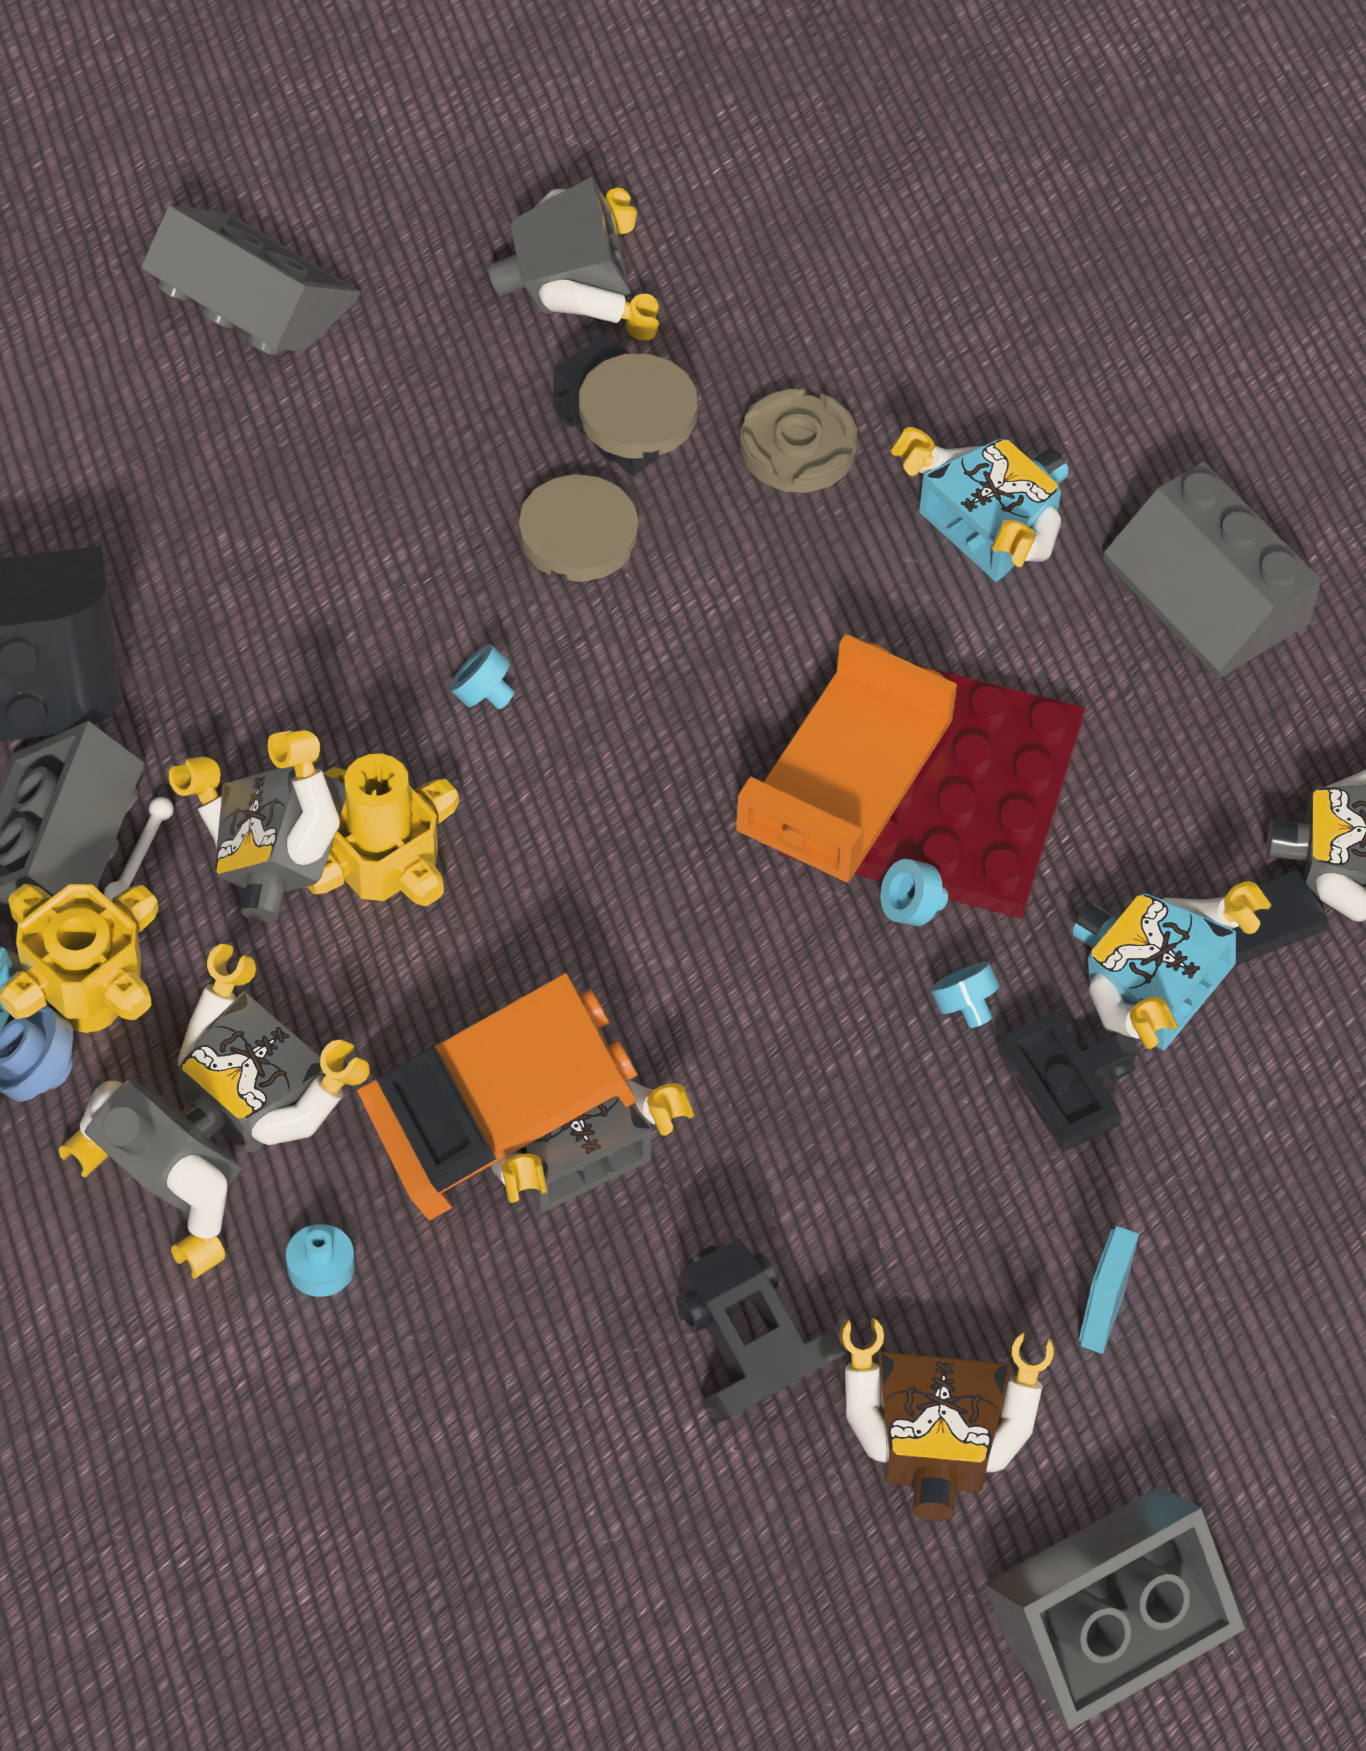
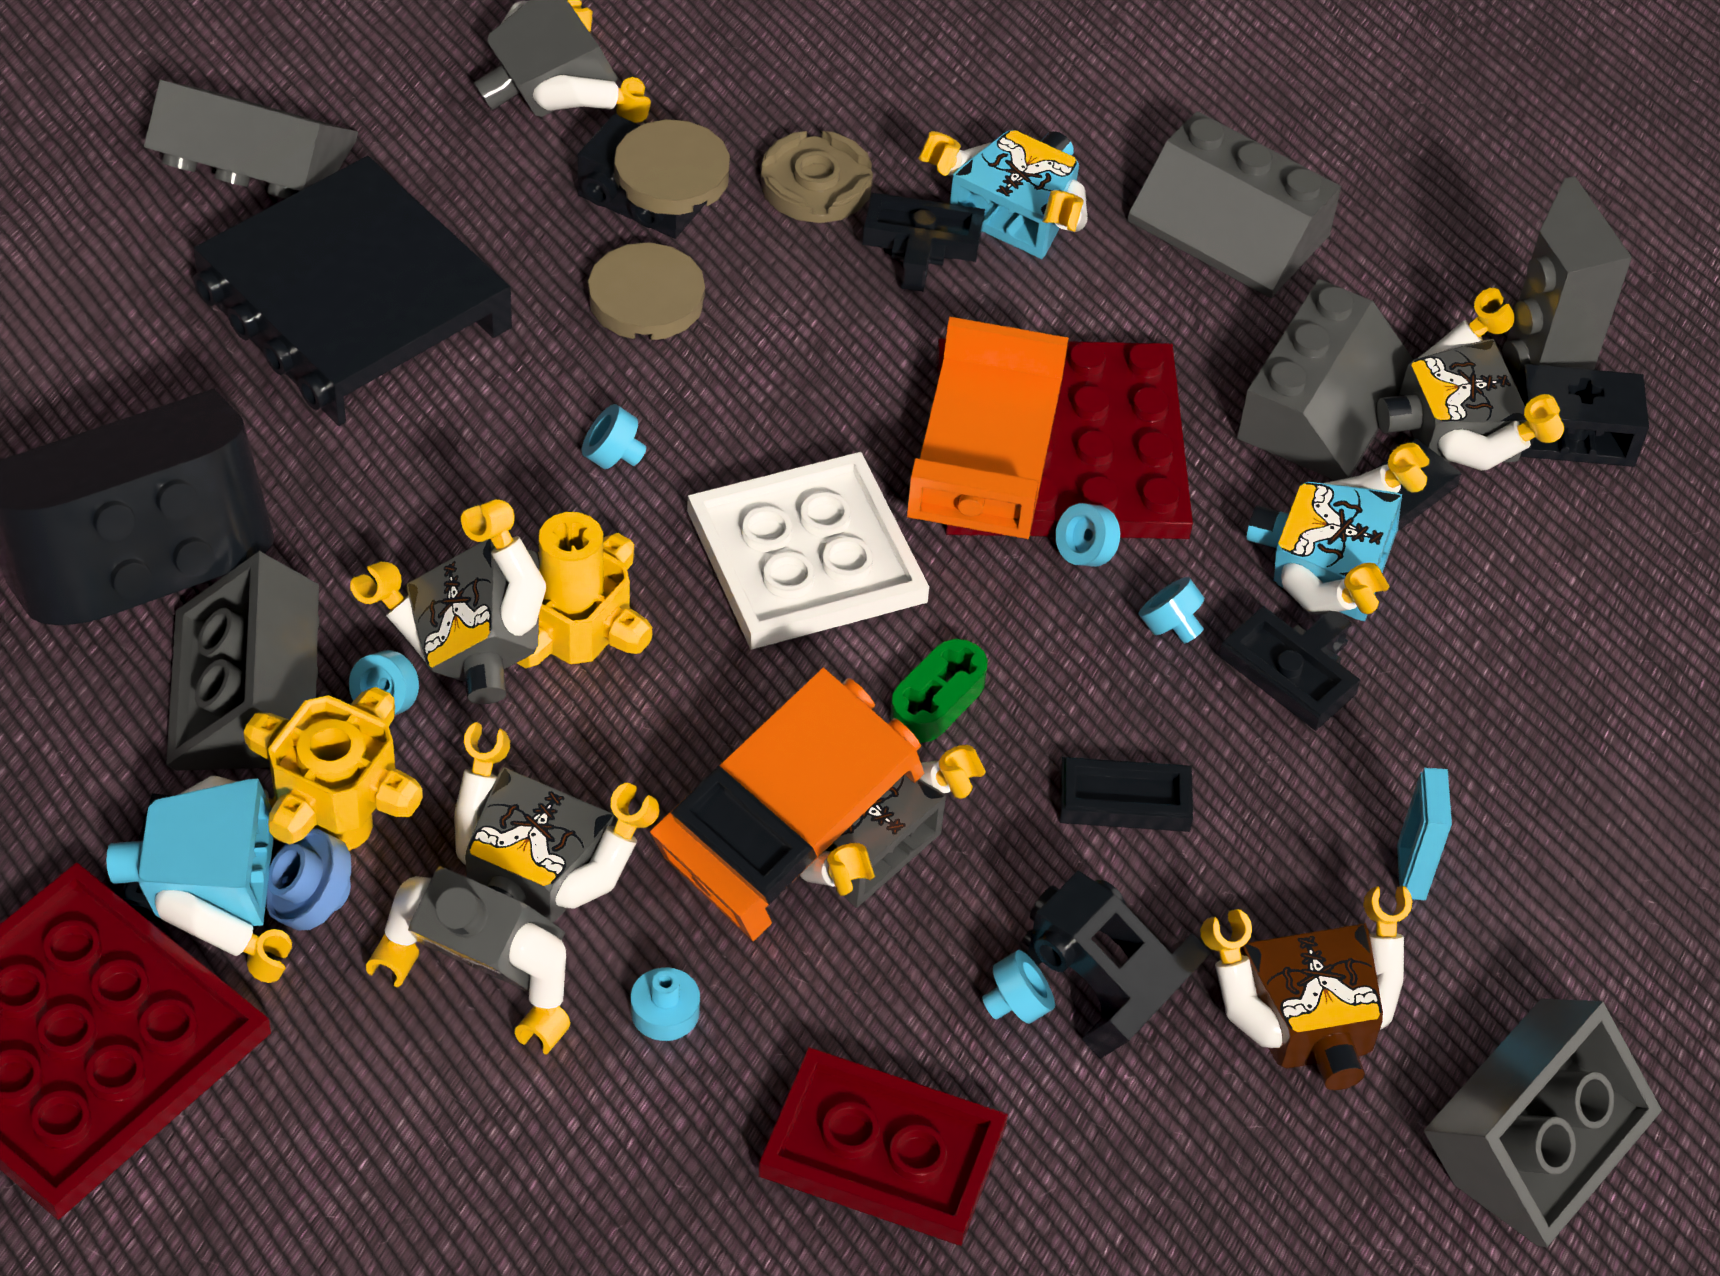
camera: 20 degrees left, 5 degrees down
(160, 810) = (344, 627): white hinge -> none
(173, 876) = (388, 672): none -> medium azure tile
(285, 455) = (347, 283): none -> black panel
(467, 1453) = (883, 1146): none -> dark red plate
(628, 839) = (807, 550): none -> white plate
(656, 1337) = (1019, 989): none -> medium azure tile
(698, 1011) = (949, 697): none -> green beam
(844, 1168) = (1126, 794): none -> black tile
(877, 529) = (922, 233): none -> black hinge
(1220, 784) = (1324, 383): none -> dark grey slope

